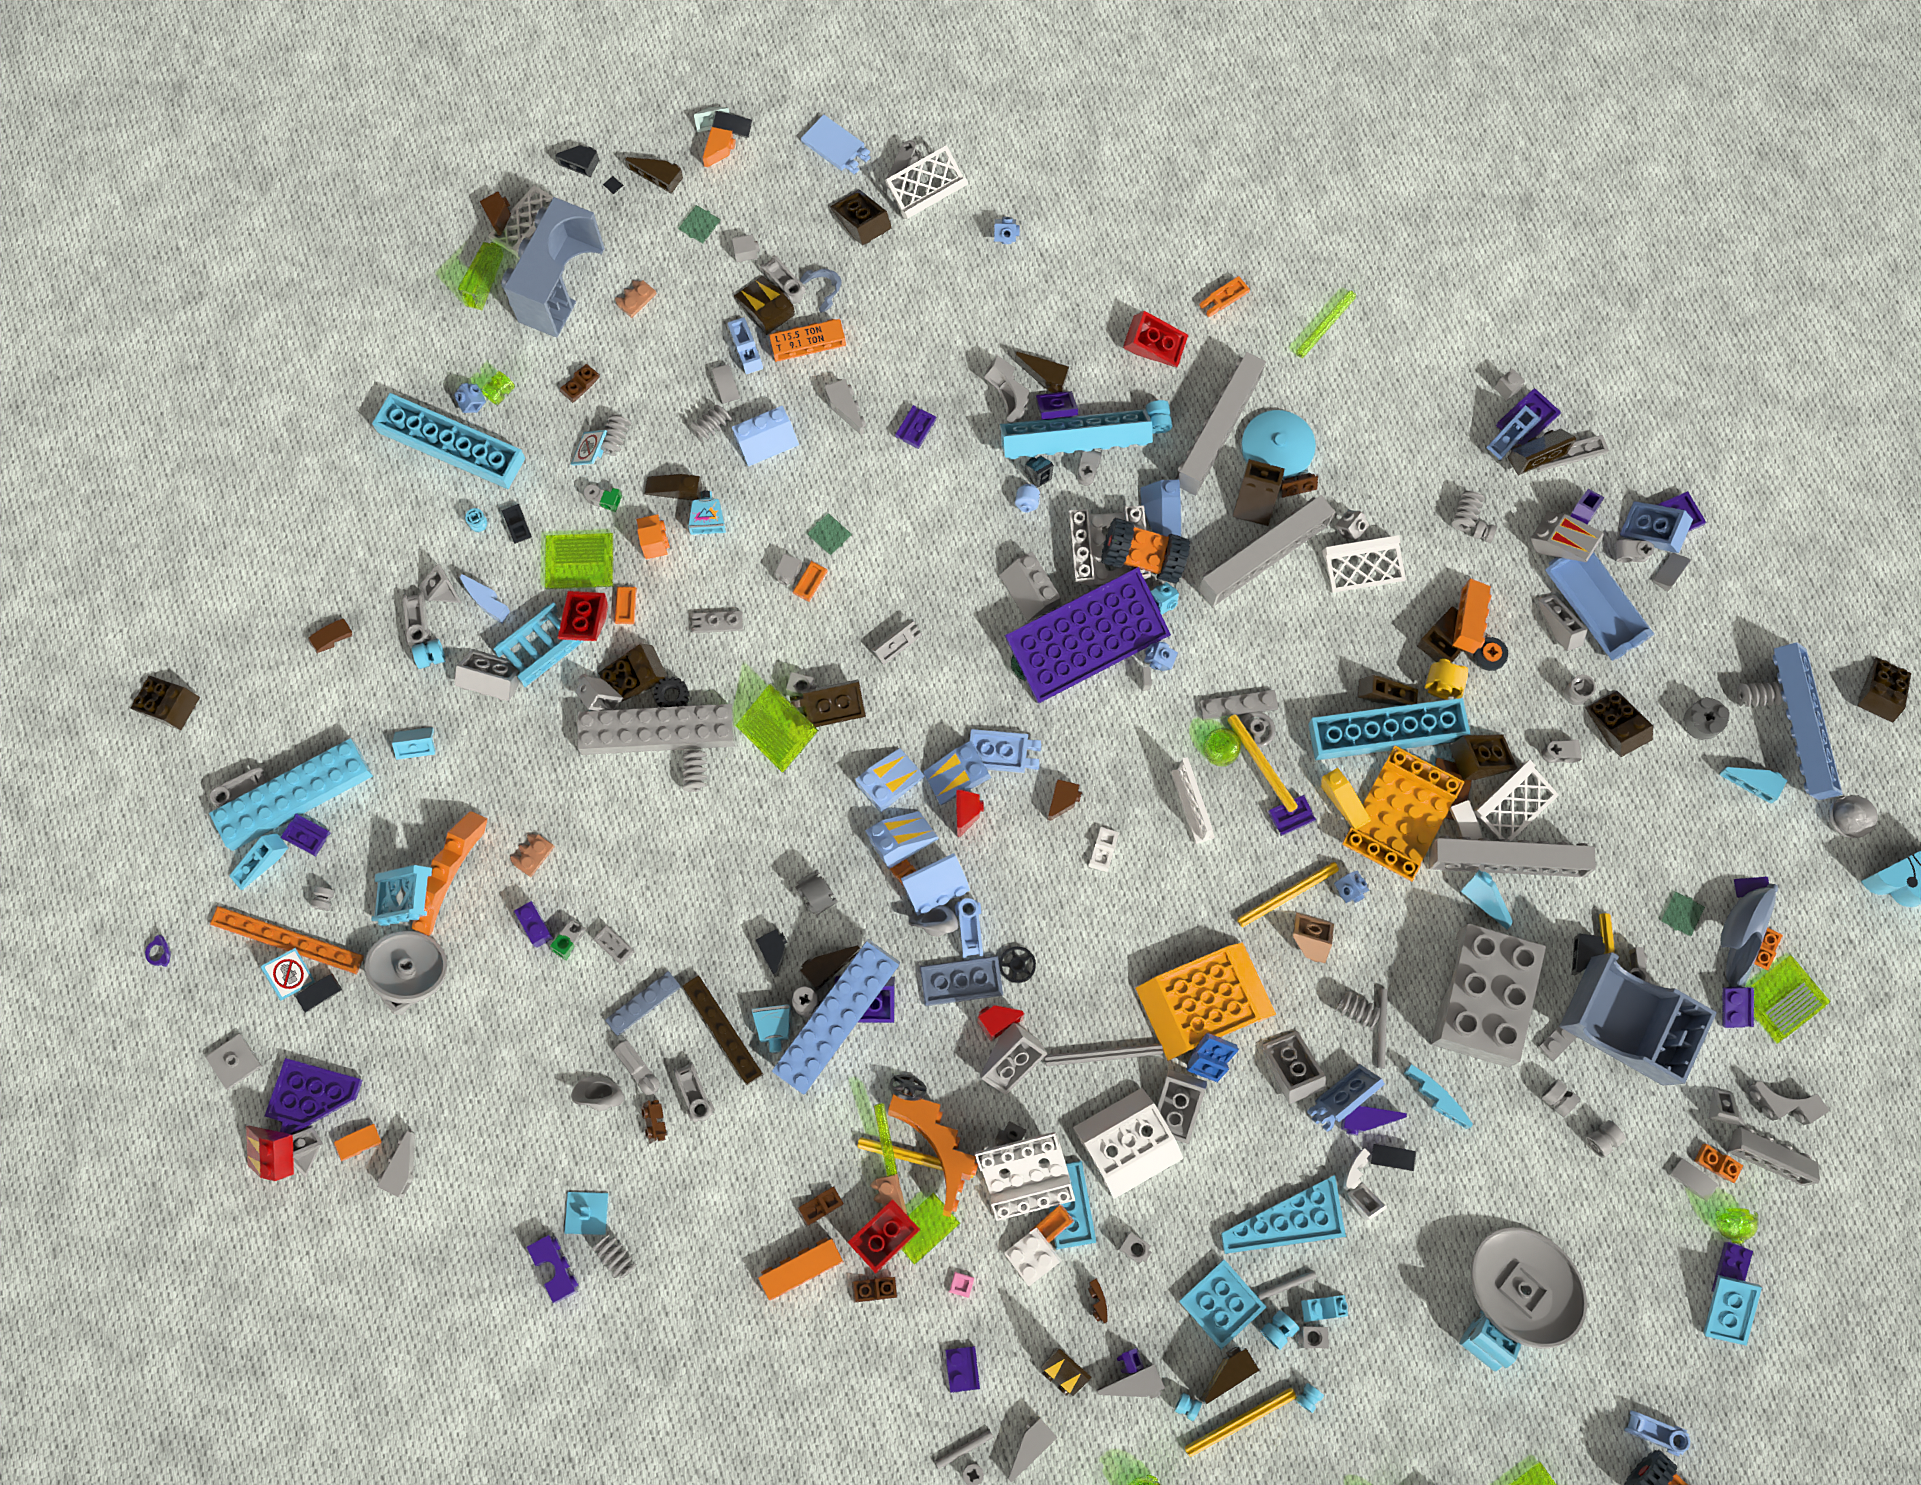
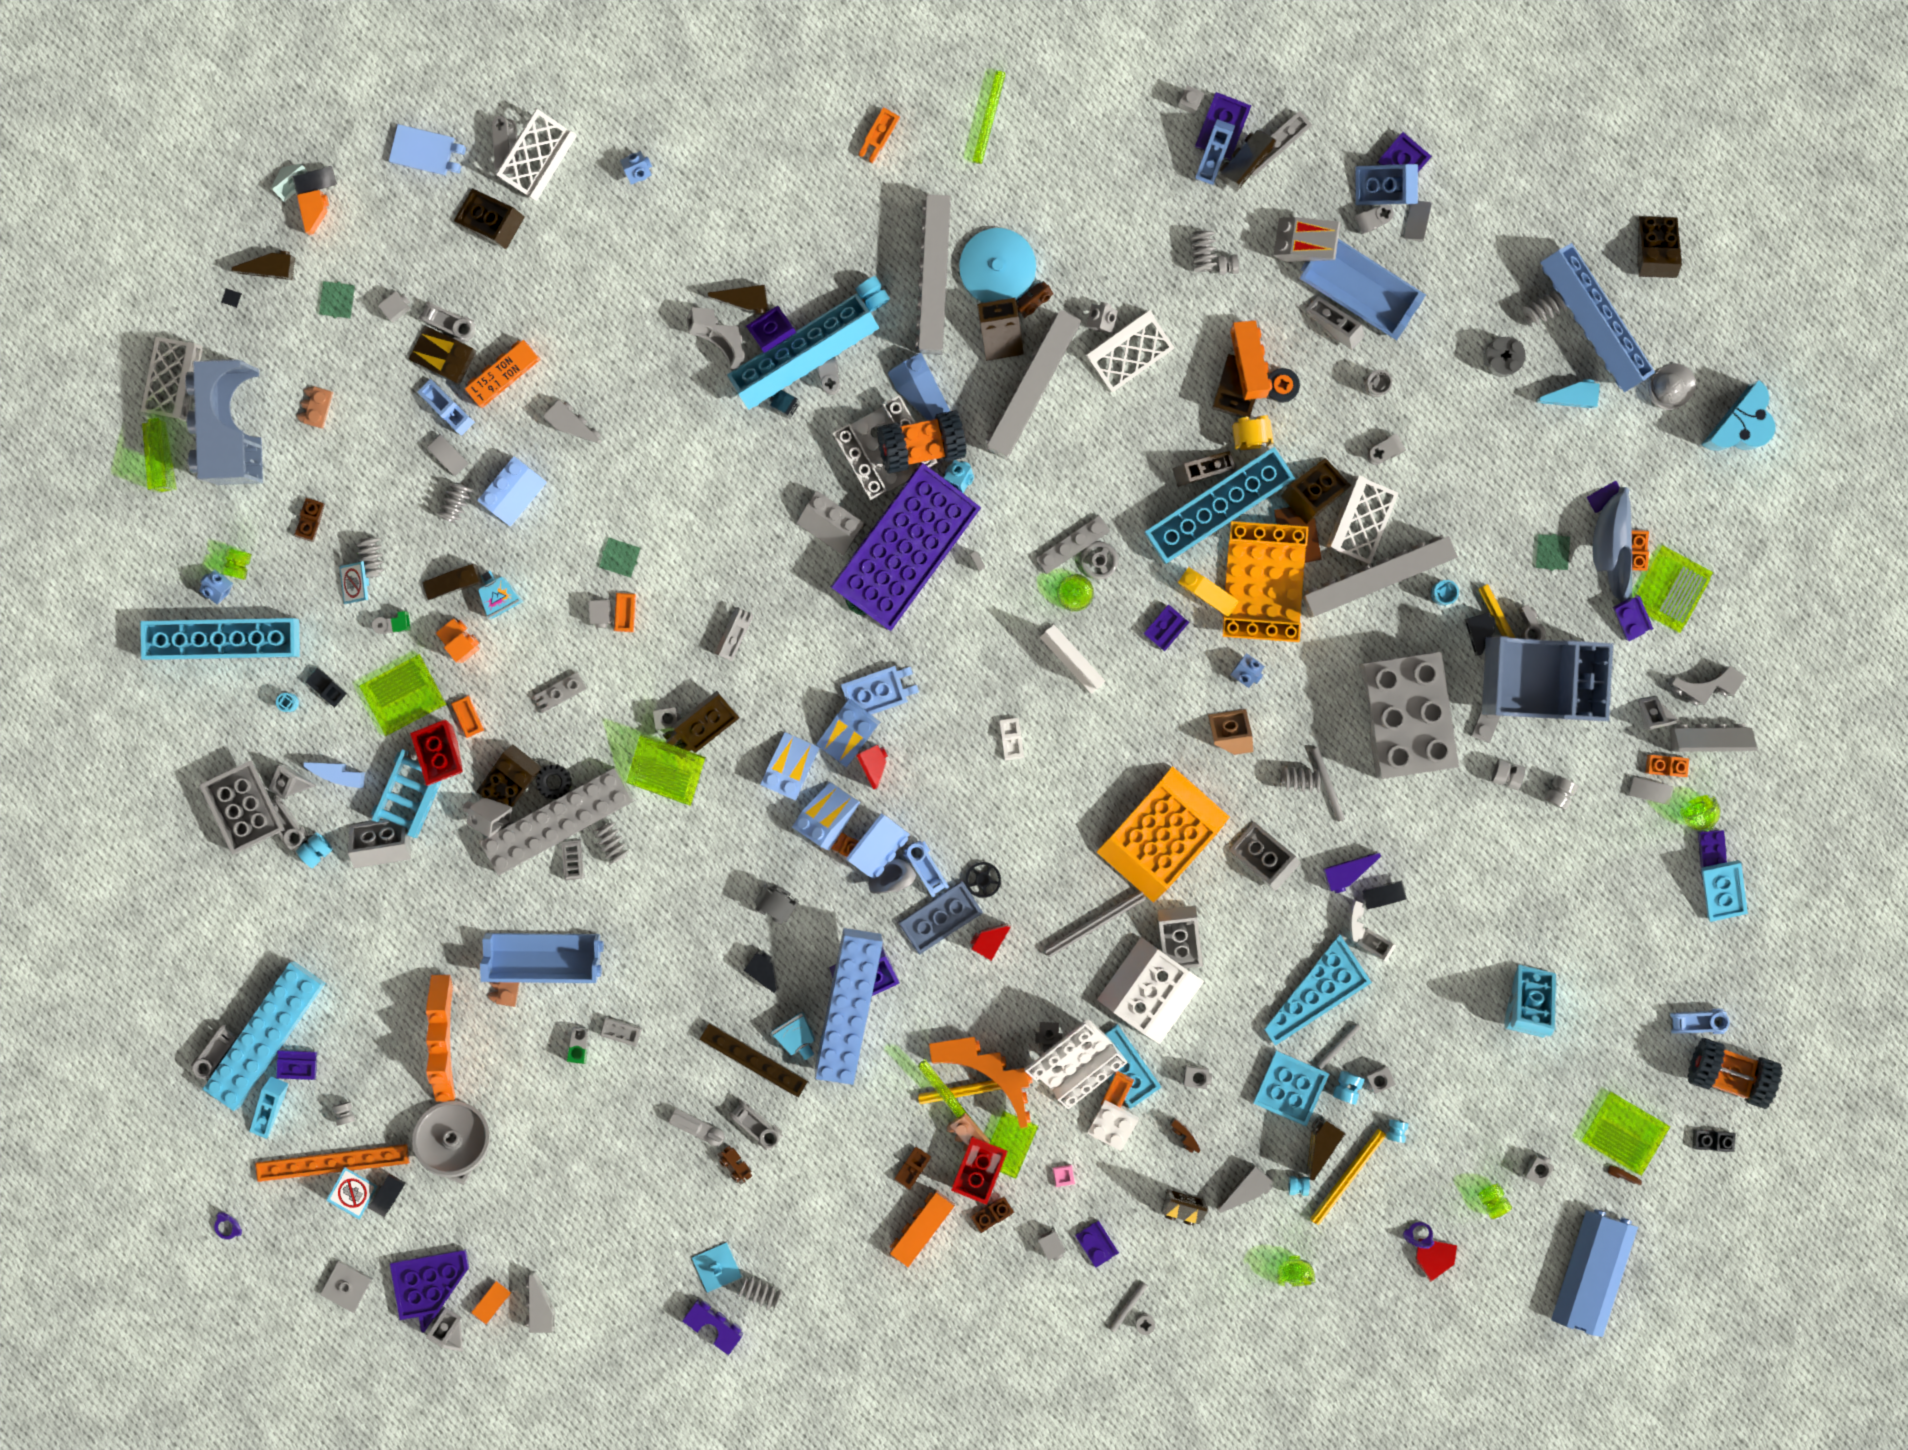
camera: 20 degrees left, 15 degrees up
(165, 702) = (102, 1007): dark brown slope -> none
(269, 1153) = (424, 1350): red slope -> none
(328, 635) = (214, 875): reddish brown slope -> none
(385, 587) = (242, 807): none -> light grey slope
(412, 906) = (427, 1079): medium azure fence -> none
(413, 743) = (345, 936): medium azure panel -> none
(497, 211) = (136, 384): reddish brown slope -> none
(533, 924) = (541, 1048): dark purple piece -> none
(577, 841) = (541, 958): none -> medium blue panel
(579, 159) = (186, 289): black slope -> none
(589, 1088) = (664, 1169): light grey hat -> none
(643, 1003) = (672, 1069): sand blue plate -> none
(658, 773) = (581, 875): none -> light grey slope
(802, 995) = (809, 1009): light grey piece -> none
(824, 967) = (814, 965): dark brown slope -> none
(835, 279) = (499, 298): sand blue helmet -> none
(907, 1087) = (939, 1034): black wheel -> none
(916, 427) = (648, 413): dark purple plate -> none
(918, 1348) = (1052, 1245): none -> light grey brick
(1012, 1058) = (1018, 967): light grey slope -> none
(1027, 498) = (787, 435): light blue head -> none
(1033, 1443) = (1184, 1274): light grey slope -> none
(1064, 798) = (954, 710): reddish brown slope -> none
(1132, 1361) = (1235, 1171): dark purple tile -> none
(1155, 339) = (833, 214): red slope -> none
(1160, 656) = (981, 534): medium blue brick -> none
(1211, 1057) = (1190, 884): blue slope -> none
(1262, 763) = (1118, 592): yellow axle -> none
(1288, 894) = (1194, 701): yellow axle -> none
(1324, 1308) = (1378, 1050): medium azure slope -> none
(1345, 1096) = (1320, 863): medium blue tile -> none
(1443, 1101) = (1407, 826): medium azure slope -> none
(1466, 820) = (1325, 560): white slope -> none
(1485, 894) = (1370, 621): medium azure slope -> none
(1555, 1289) = (1550, 931): light grey dish -> none
(1570, 898) = (1444, 592): none -> medium azure wheel
(1587, 506) = (1314, 198): dark purple piece -> none
(1620, 723) = (1427, 397): dark brown slope -> none

